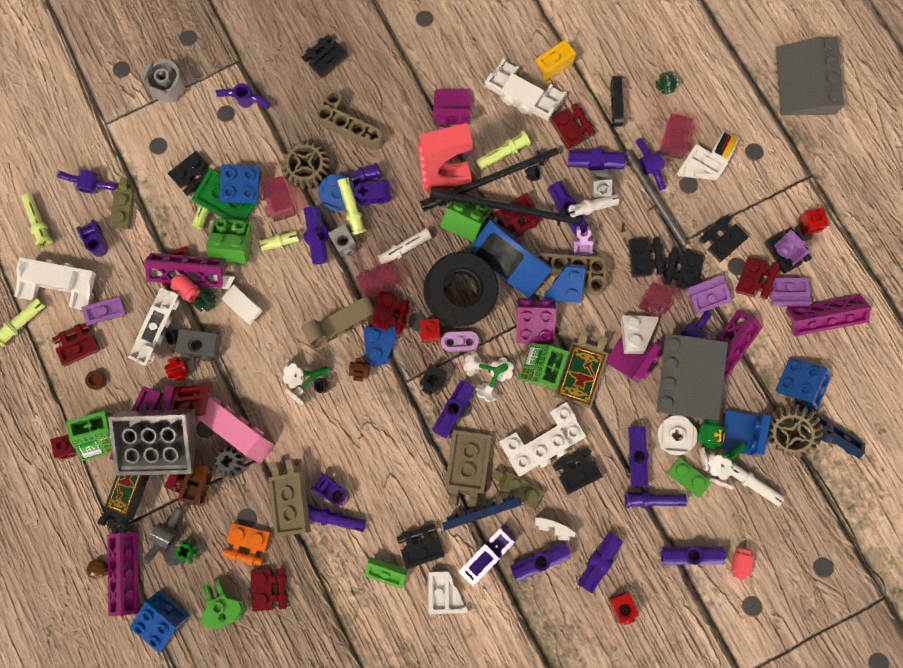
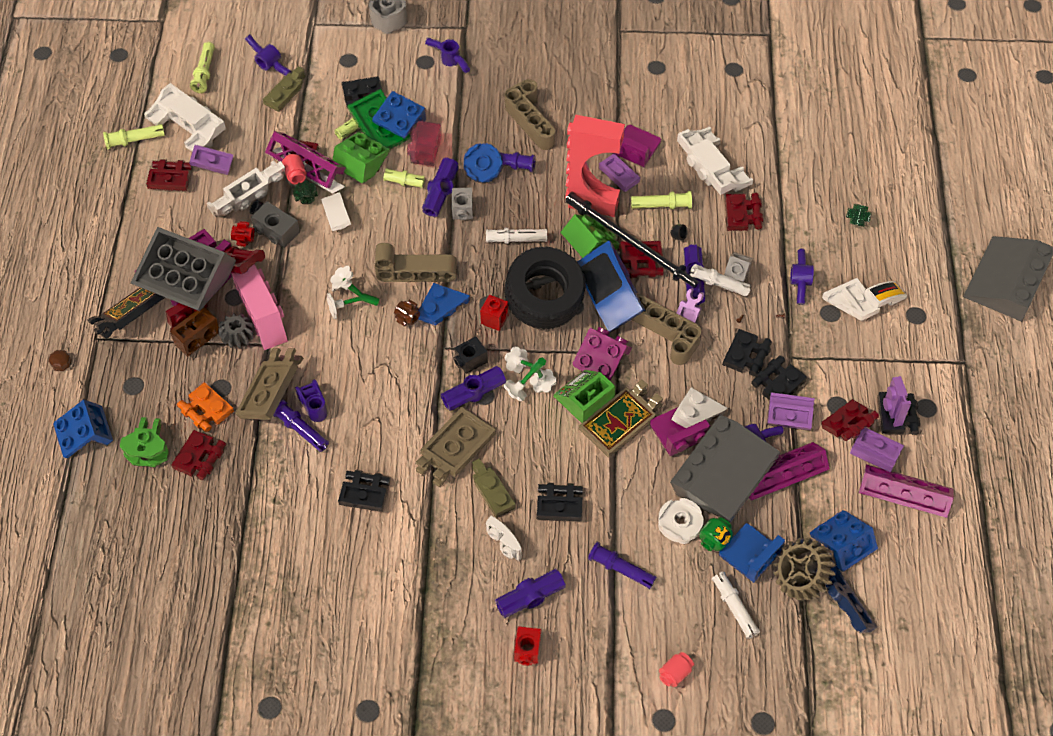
camera: 25 degrees right, 20 degrees down
(62, 448) = (103, 248): dark red brick -> none
(90, 435) = (128, 247): bright green slope -> none
(91, 235) = (242, 102): dark purple piece -> none
(95, 380) = (166, 212): reddish brown tile -> none
(125, 574) = (79, 374): magenta fence -> none
(163, 535) = (136, 360): dark grey piece -> none
(182, 548) = (147, 384): green gear -> none
(296, 177) = (468, 128): dark tan gear -> none
(319, 387) = (362, 312): black hinge -> none
(327, 59) = (543, 55): black plate -> none
(353, 215) = (485, 186): yellowish green pin -> none
(374, 192) = (517, 179): dark purple piece -> none
(379, 279) = (473, 249): clear pink brick -> none
(384, 309) = (461, 275): dark red plate -> none
(386, 572) = (316, 494): bright green plate -> none
(430, 203) = (569, 211): black bar -> none
(443, 595) = (358, 543): white wing -> none
(459, 341) = (518, 336): lavender plate -> none
(473, 515) = (443, 487): dark blue hinge -> none
(488, 555) = (424, 530): slope -> none
(552, 443) = (544, 463): white bracket -> none
(553, 556) = (485, 561): dark purple piece -> none
(556, 60) = (759, 149): yellow panel -> none
(568, 284) = (652, 335): blue wing -> none
(596, 159) = (748, 246): dark purple piece -> none
(617, 101) = (799, 209): black beam -> none
(637, 168) = (785, 275): flat silver bar -> none
(638, 443) = (622, 527): dark purple piece -> none
(656, 300) = (731, 386): clear pink brick -> none
(676, 135) = (839, 261): clear pink brick -> none
(680, 556) = (642, 641): dark purple piece -> none
(689, 477) = (670, 566): bright green plate -> none
(719, 465) = (703, 553): white plant -> none
(728, 242) = (837, 379): black plate -> none
(813, 221) = (939, 398): red brick -> none

